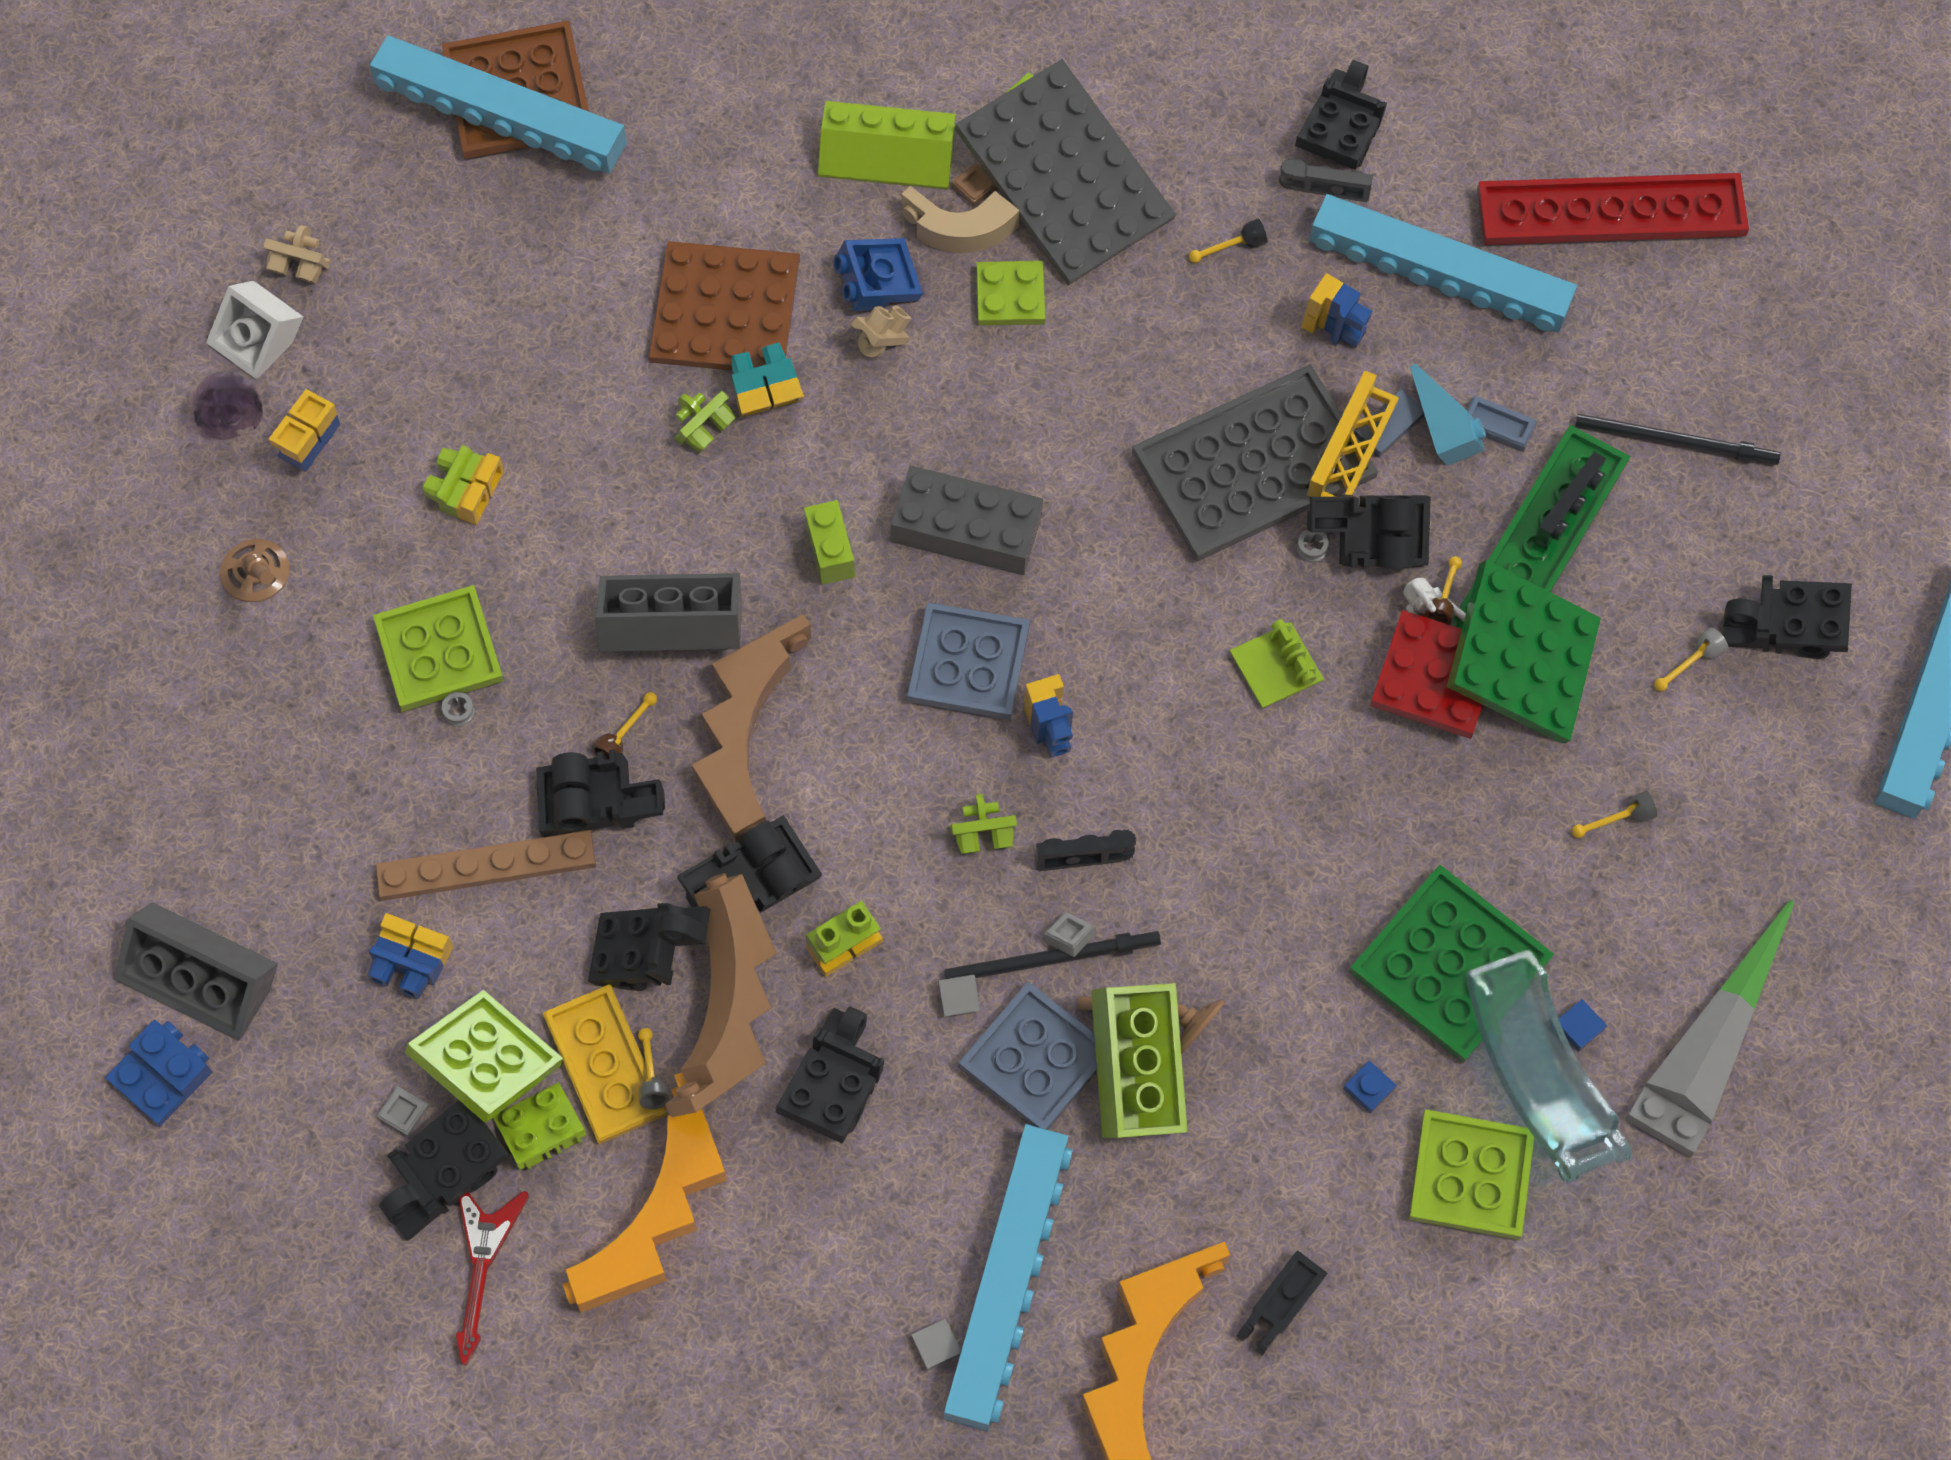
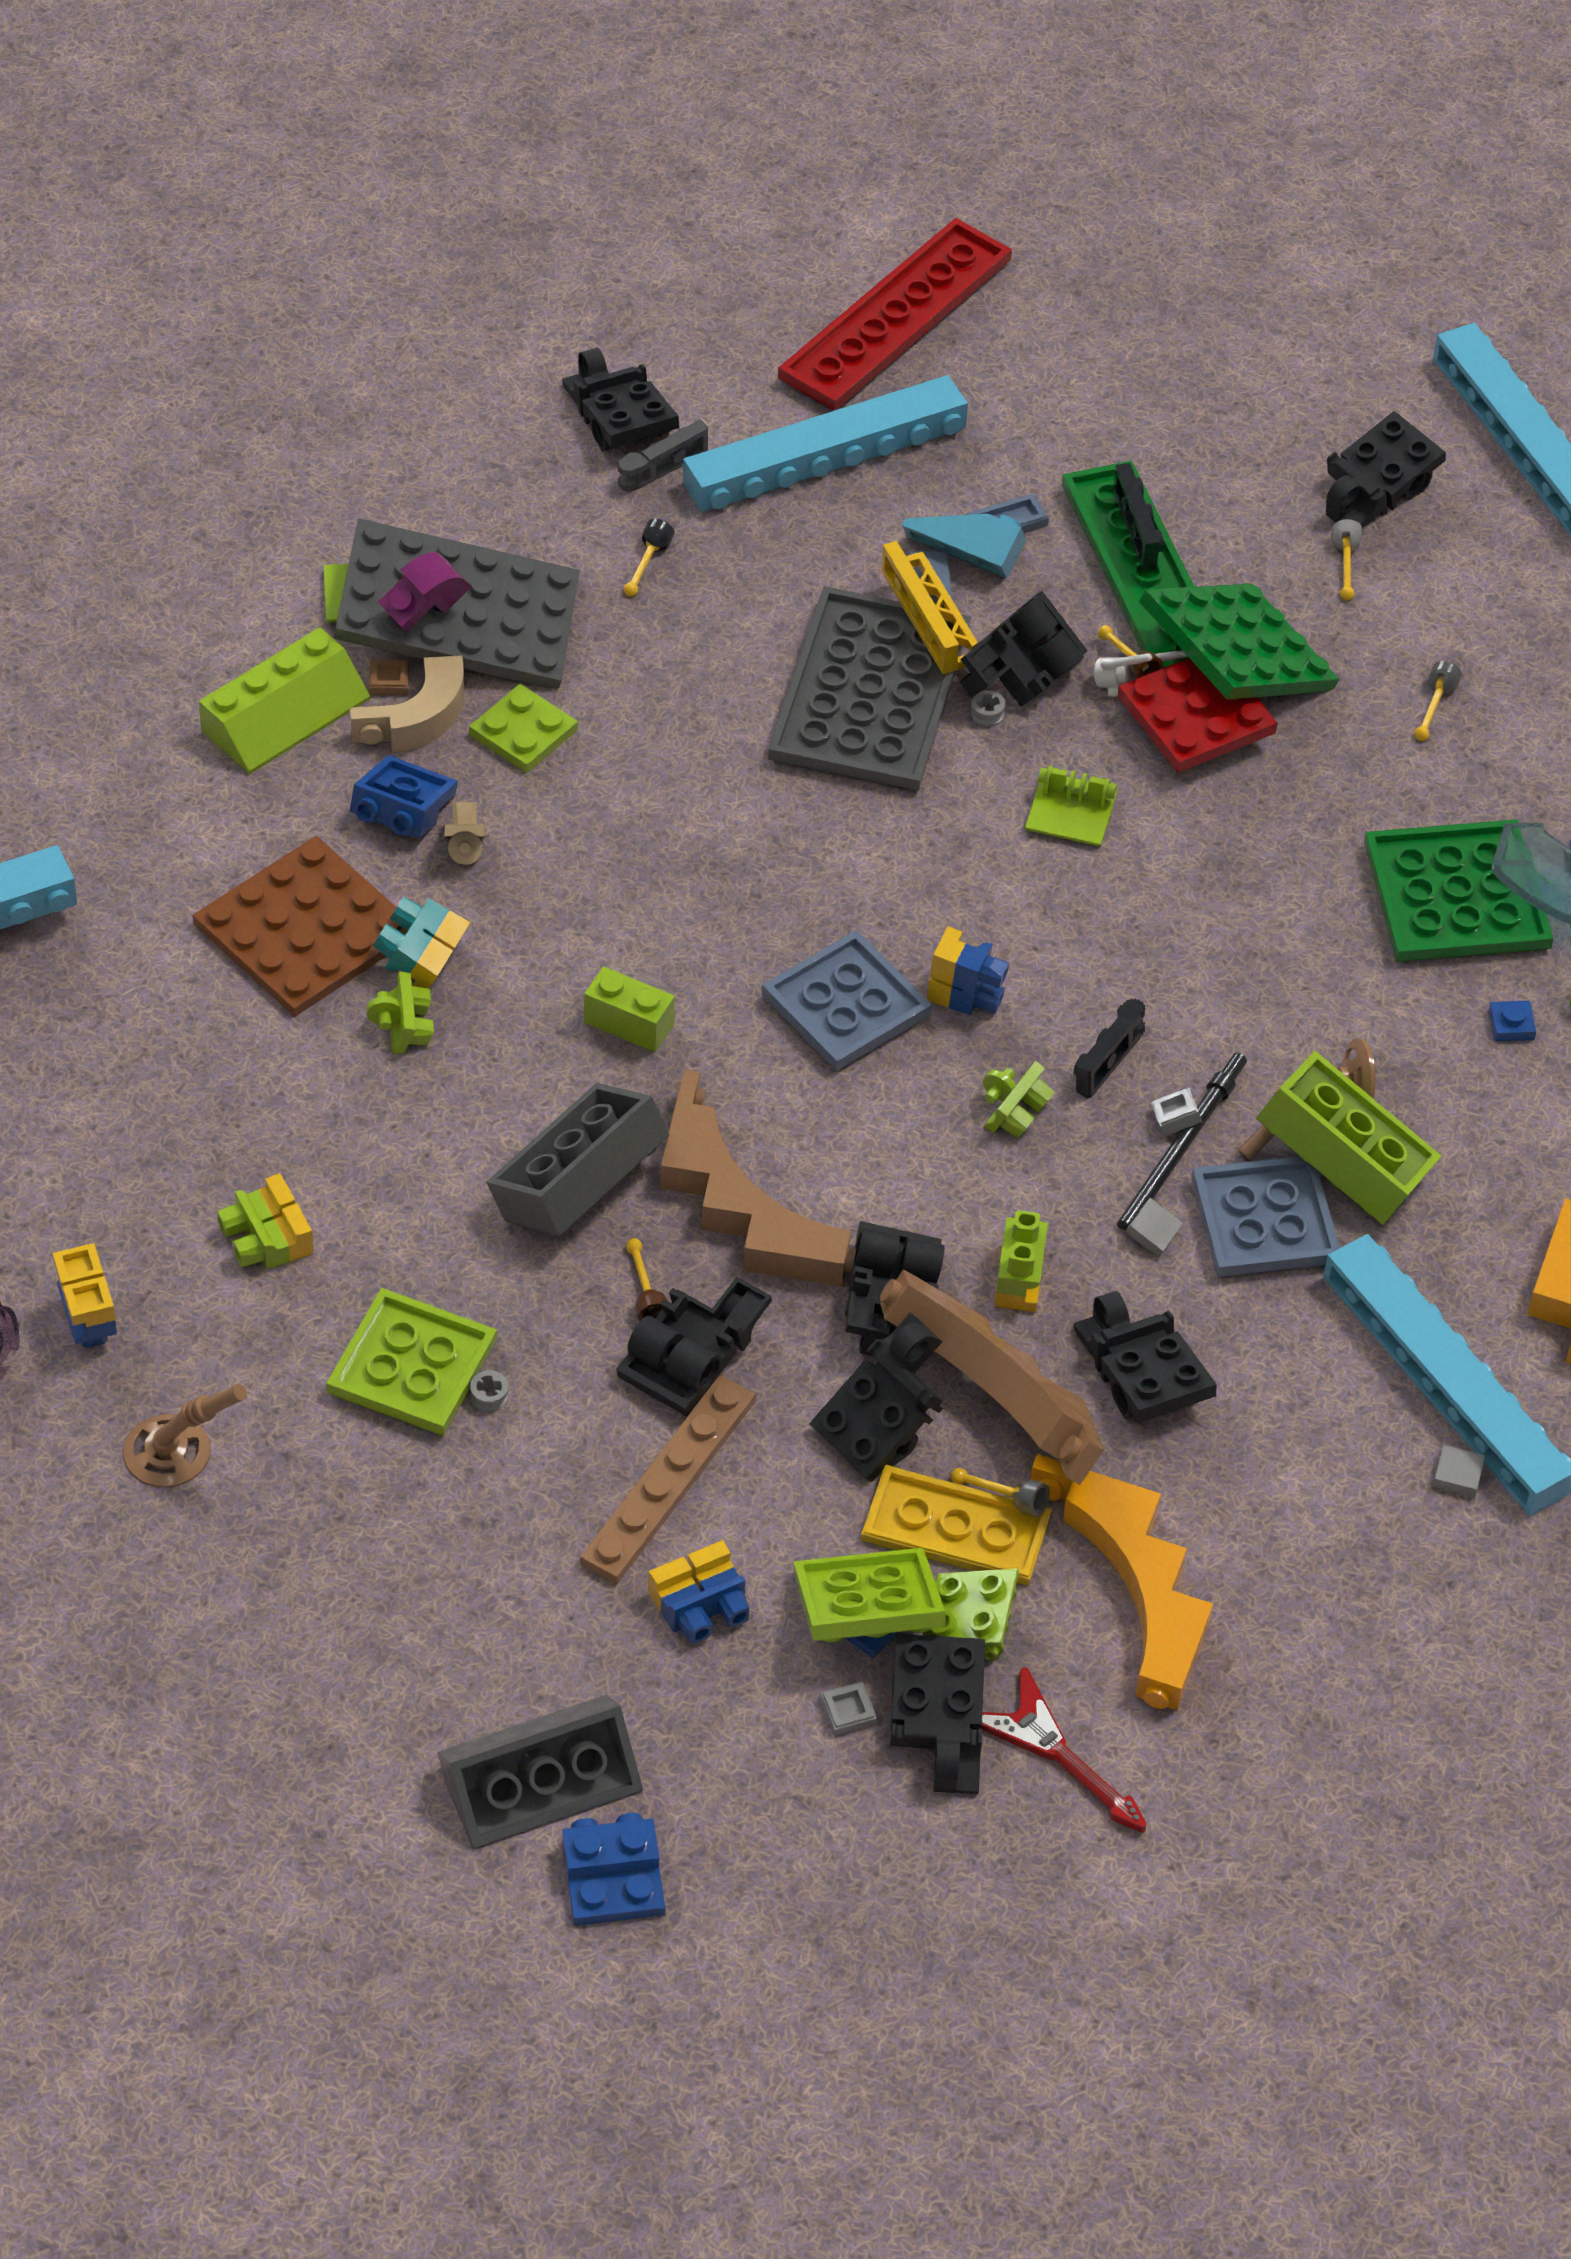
camera: 50 degrees left, 15 degrees down
(966, 520) = (714, 903): dark grey brick -> none
(1033, 141) = (425, 583): none -> magenta brick
(1337, 311) = (798, 532): blue hips -> none
(1743, 451) = (1197, 398): black bar -> none

